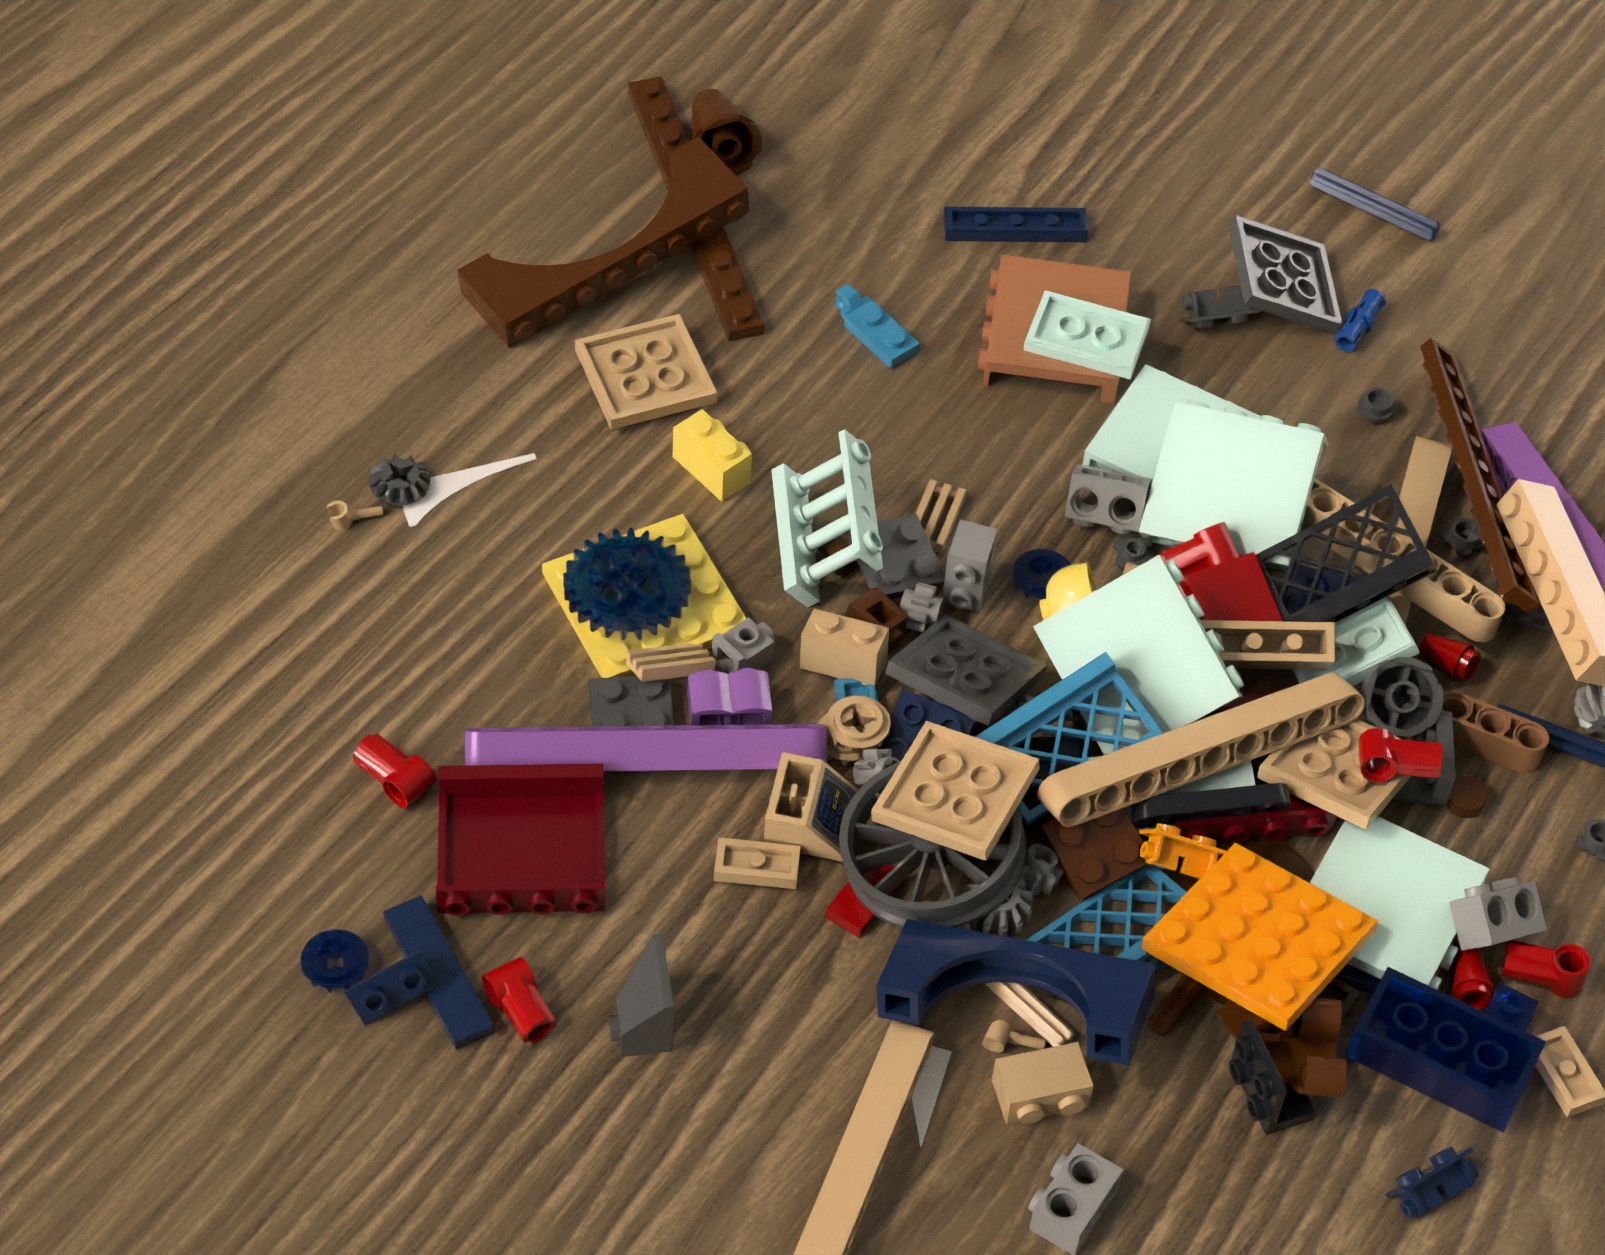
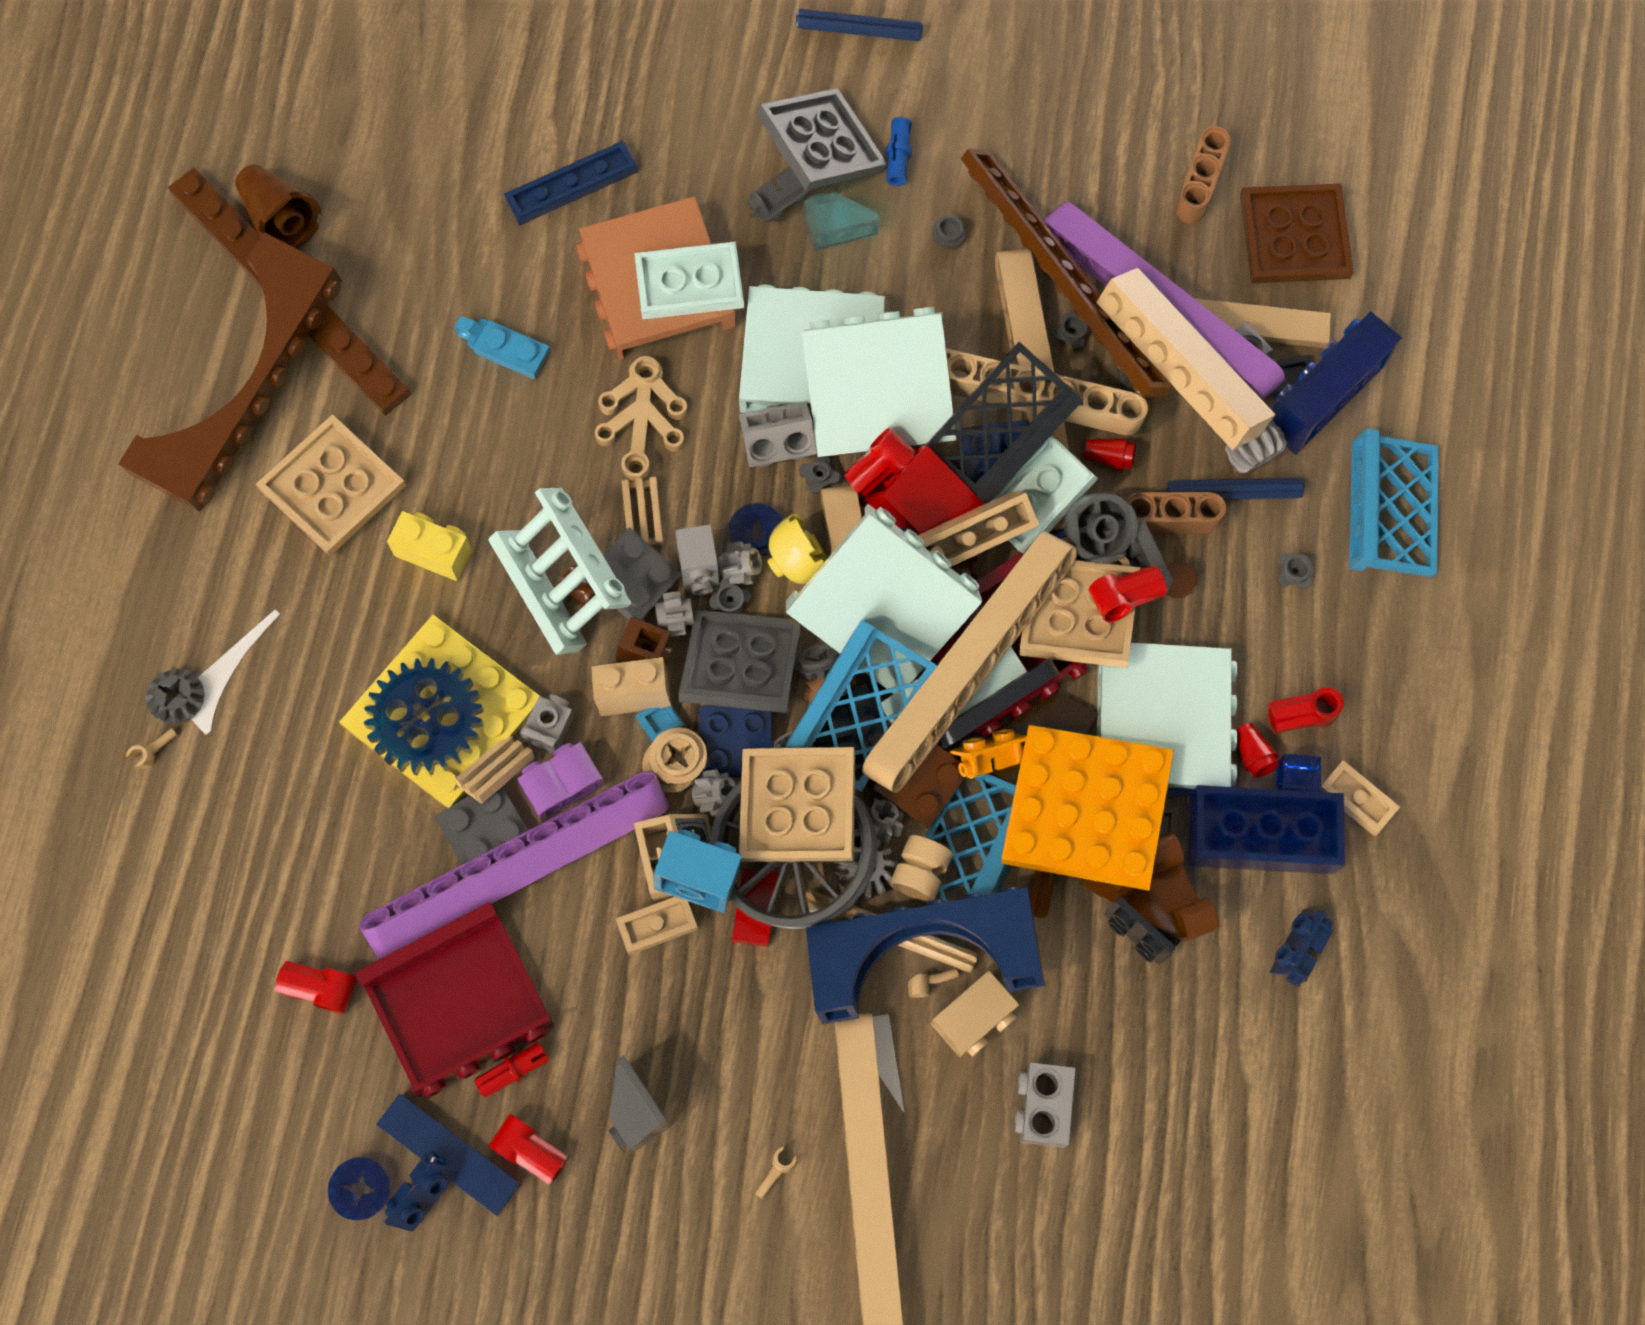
camera: 25 degrees left, 20 degrees up
(541, 924) = (511, 1070): none -> red axle
(763, 1134) = (774, 1173): none -> tan hand
(823, 803) = (697, 870): none -> dark azure brick
(988, 611) = (726, 589): none -> dark grey plate
(1000, 404) = (641, 412): none -> tan plant
(1010, 591) = (740, 563): none -> light grey gear
(1057, 919) = (921, 868): none -> tan wheel
(1267, 351) = (837, 220): none -> clear light blue slope
(1497, 914) = (1256, 690): light grey brick -> none

